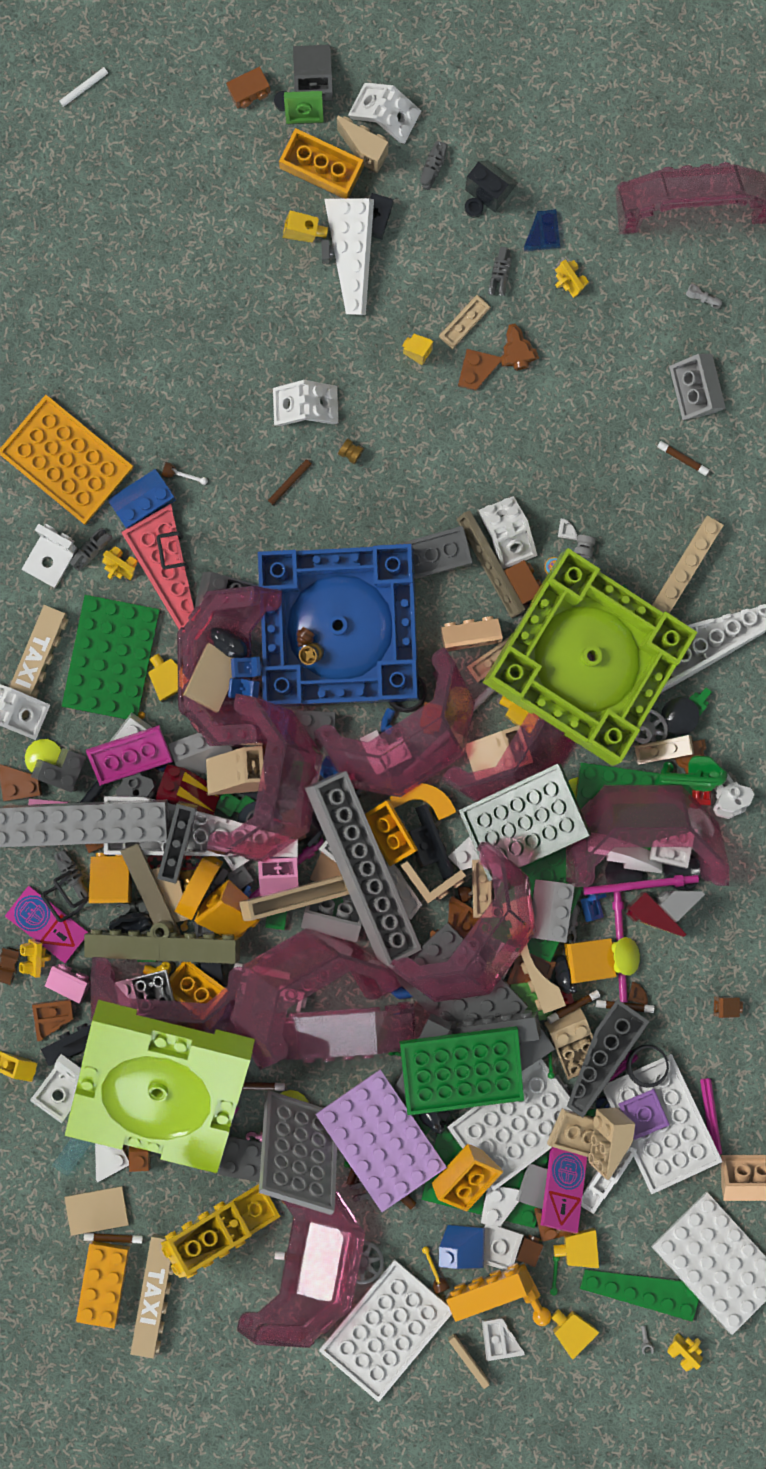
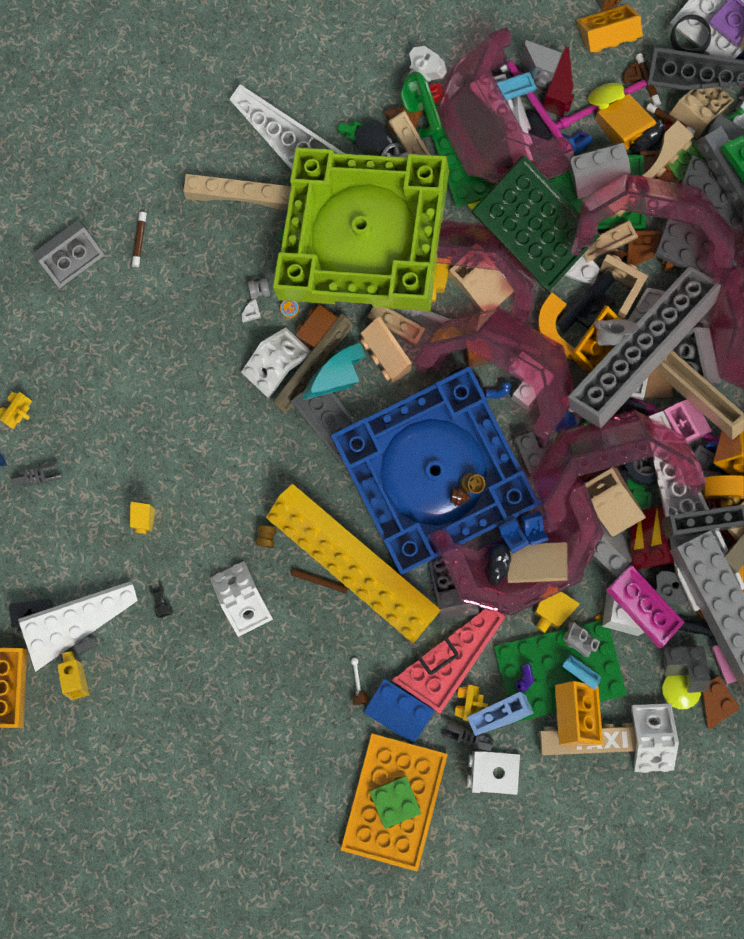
camera: 110 degrees left, 5 degrees down
(62, 651) = (578, 714): none -> light orange slope
(63, 459) = (395, 802): none -> bright green plate
(95, 584) = (500, 714): none -> light blue slope
(99, 673) = (582, 671): none -> medium azure tile
(114, 621) = (526, 680): none -> dark purple arm
(126, 684) = (580, 640): none -> light grey hips
(289, 514) = (352, 563): none -> yellow brick
(335, 333) = (162, 610): none -> pearl dark grey piece
(390, 844) = (612, 331): none -> light grey piece
(464, 322) = (97, 488): tan tile -> none
(470, 577) = (336, 373): none -> teal slope
(477, 368) = (137, 457): dark orange wing -> none
(517, 350) = (103, 427): dark orange rock -> none
(669, 870) = (517, 86): none -> medium azure tile
(692, 993) = (610, 28): none -> light orange slope

